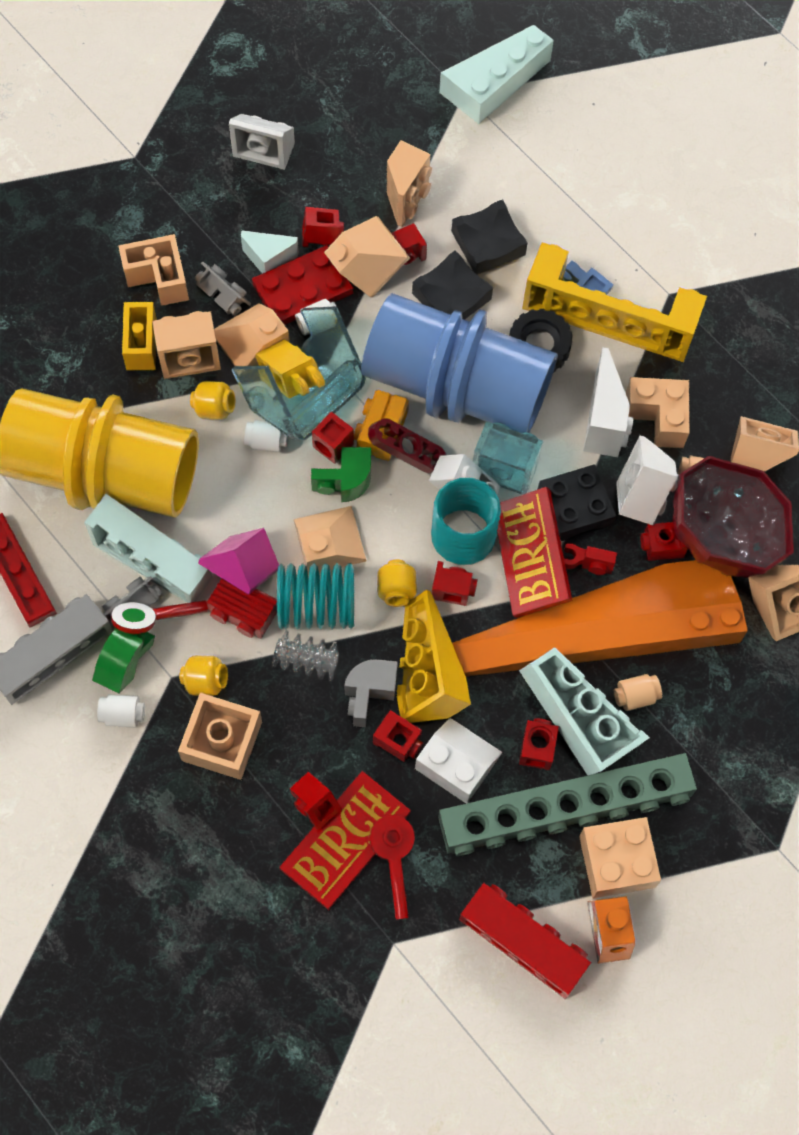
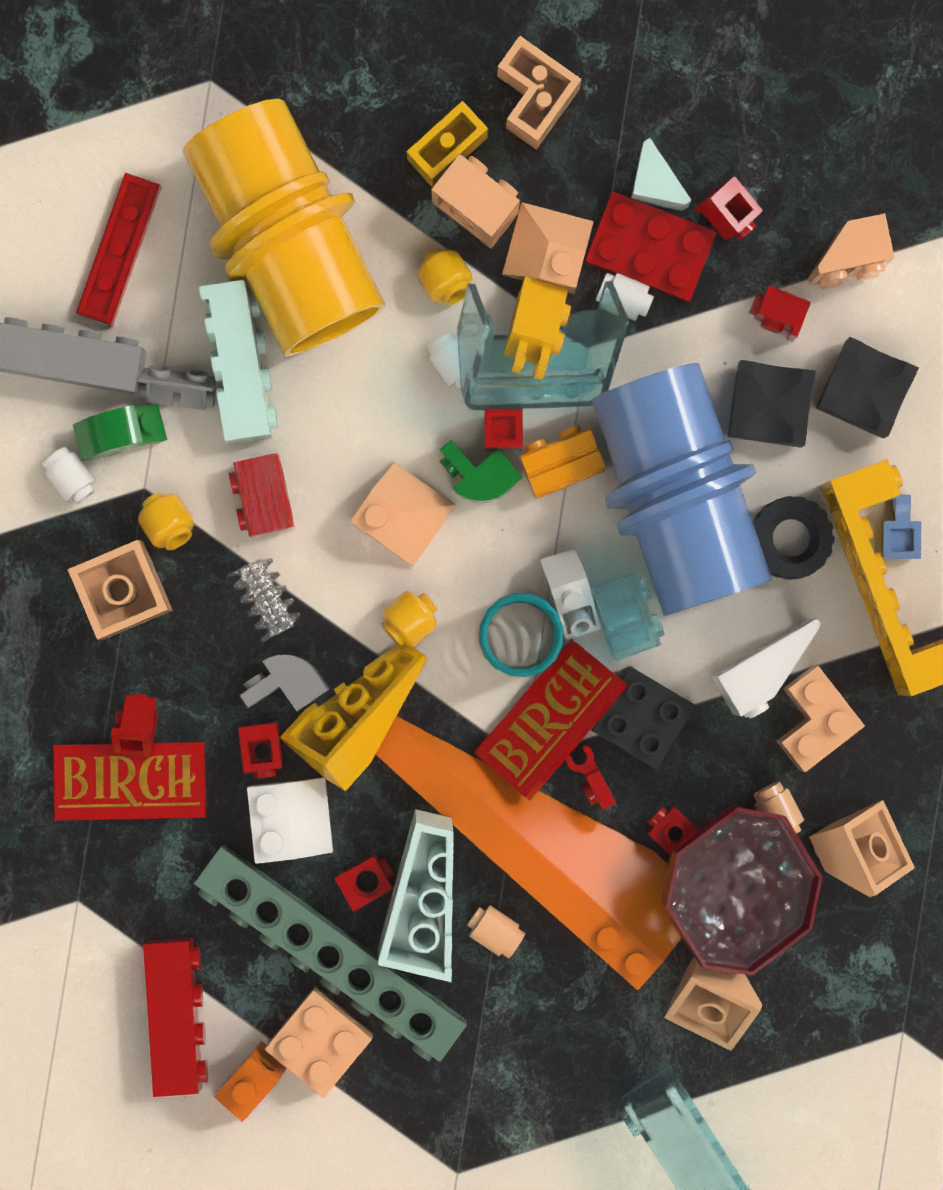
camera: 50 degrees right, 20 degrees up
(140, 618) = (161, 413): piece -> none
(214, 280) = (578, 155): light grey hinge -> none
(243, 560) = (303, 456): dark pink slope -> none
(261, 140) = (779, 56): white slope -> none
(322, 588) = (354, 584): teal piece -> none
(367, 255) = (733, 287): light nougat slope -> none
(392, 840) = (163, 825): red piece -> none
(394, 446) = (558, 495): dark red beam -> none
(453, 585) = (455, 672): red brick -> none
(646, 482) = (711, 773): white slope -> none

